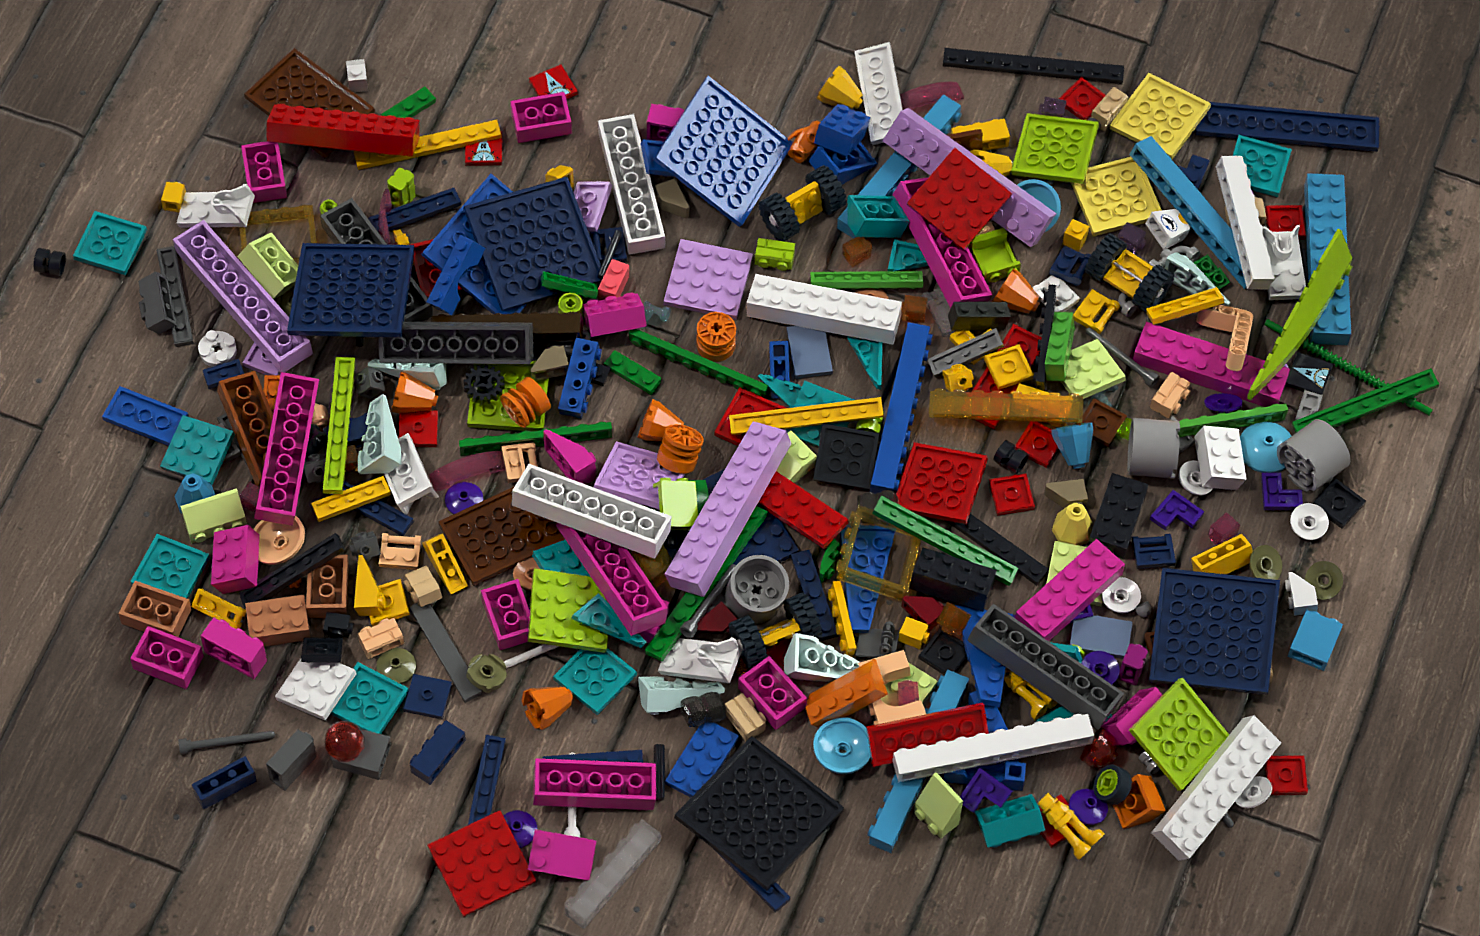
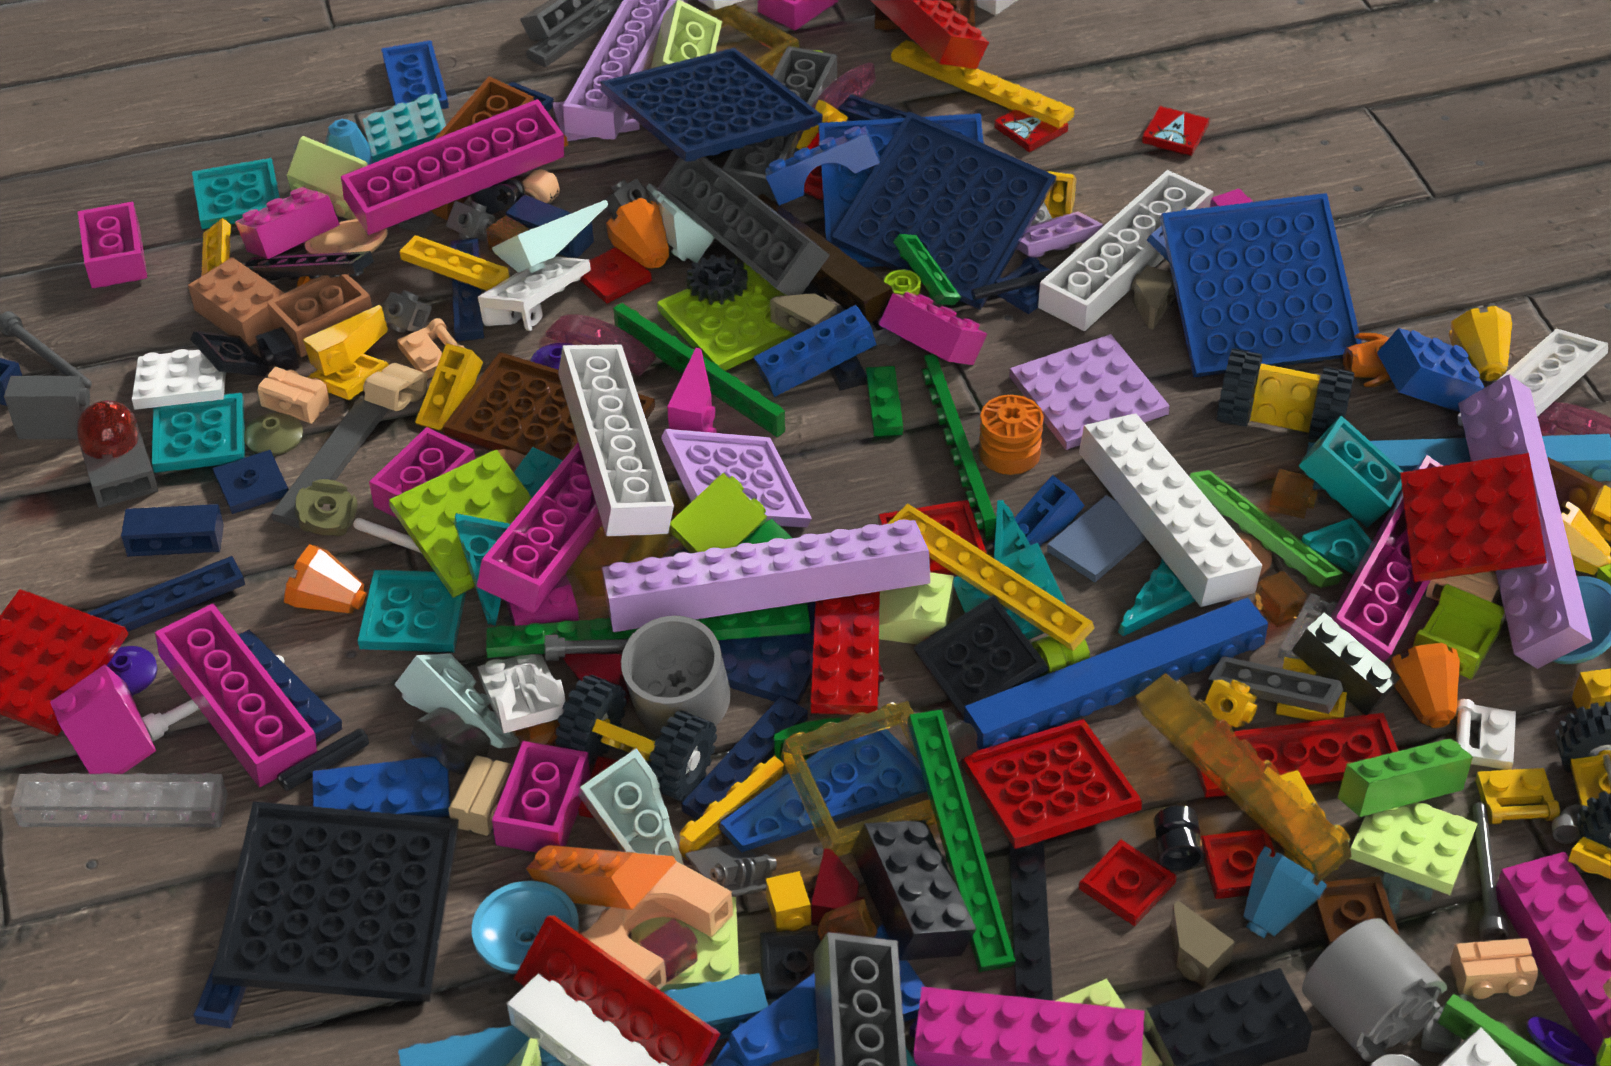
camera: 55 degrees right, 15 degrees down
(154, 608) = (165, 205): nougat brick -> none
(214, 339) = (543, 77): white plate -> none
(234, 647) = (166, 283): dark pink brick -> none
(339, 425) = (535, 198): lime plate -> none
(401, 187) = (897, 83): lime brick -> none
(412, 105) = (1016, 50): green plate -> none
(514, 459) = (651, 367): light nougat plate -> none
(525, 402) = (719, 316): orange wheel -> none
(541, 117) = (1119, 135): dark pink brick -> none
(613, 280) = (987, 306): coral brick -> none
(649, 309) = (993, 379): clear light blue piece -> none
(656, 421) = (830, 454): orange cone -> none
(680, 448) = (810, 488): orange wheel -> none
(774, 254) = (1192, 423): lime brick -> none
(844, 166) = (1385, 411): blue slope -> none
(1008, 367) = (1308, 743): yellow plate -> none
(1045, 330) = (1457, 725): black plate -> none
(1066, 262) = (1538, 717): dark blue plate -> none
(1073, 525) = (1152, 976): light yellow cone -> none

